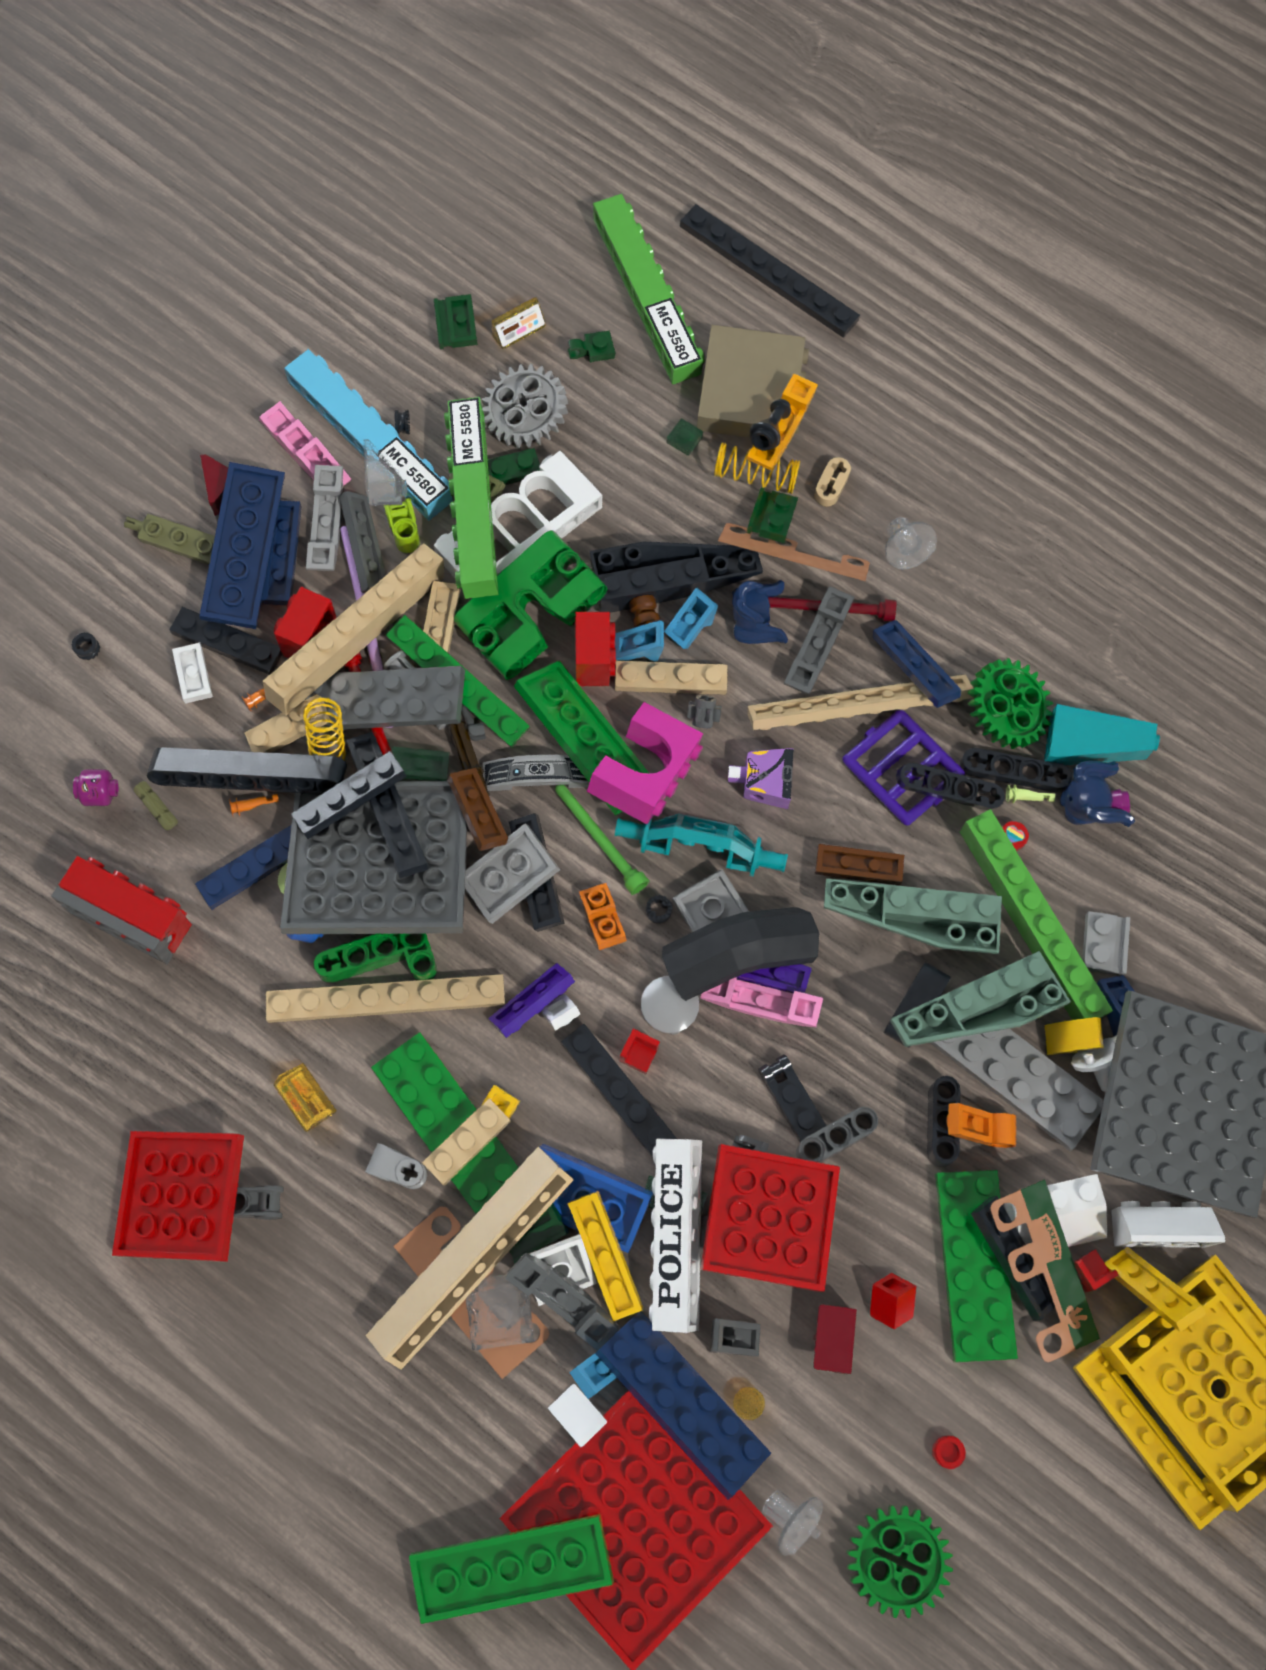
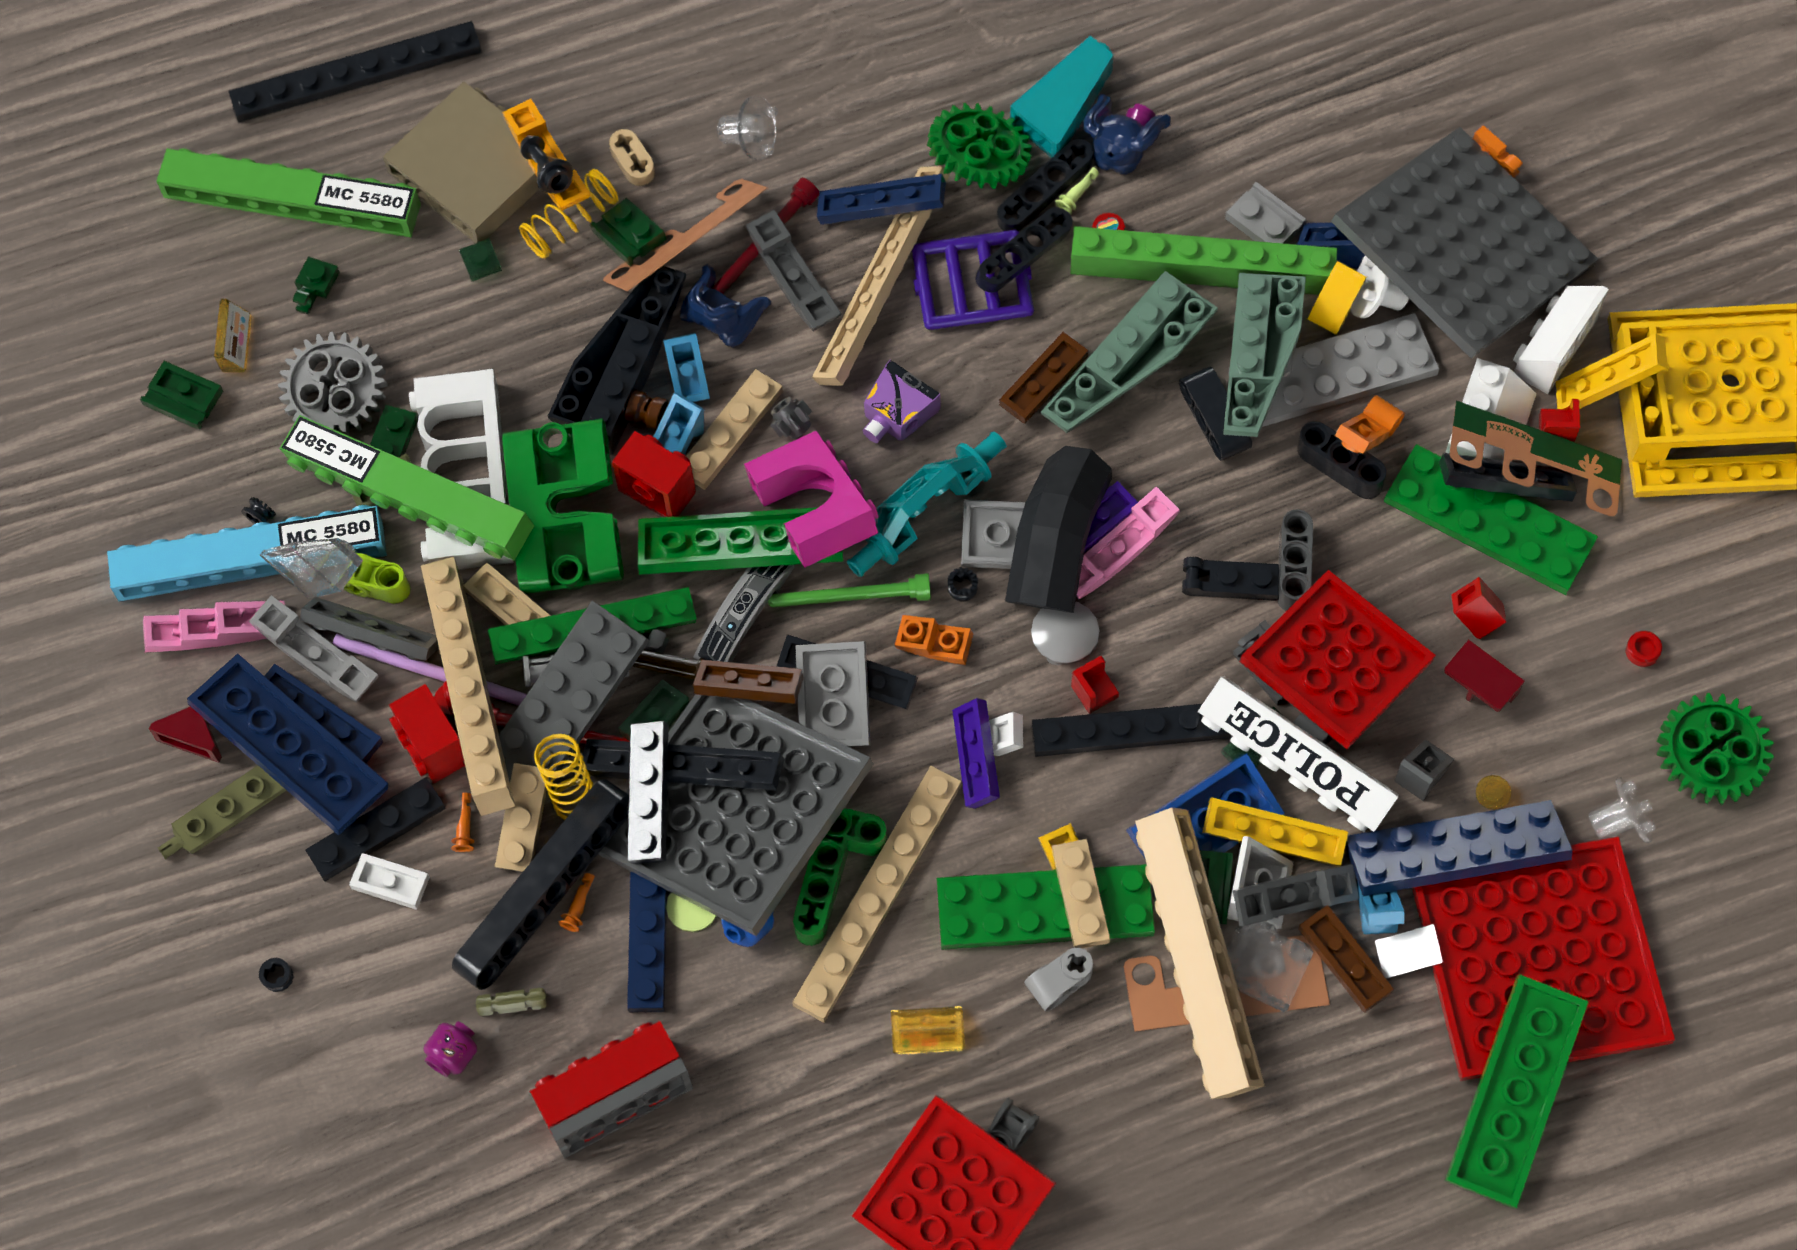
camera: 50 degrees left, 5 degrees down
(541, 1370) = (1346, 959): none -> reddish brown plate

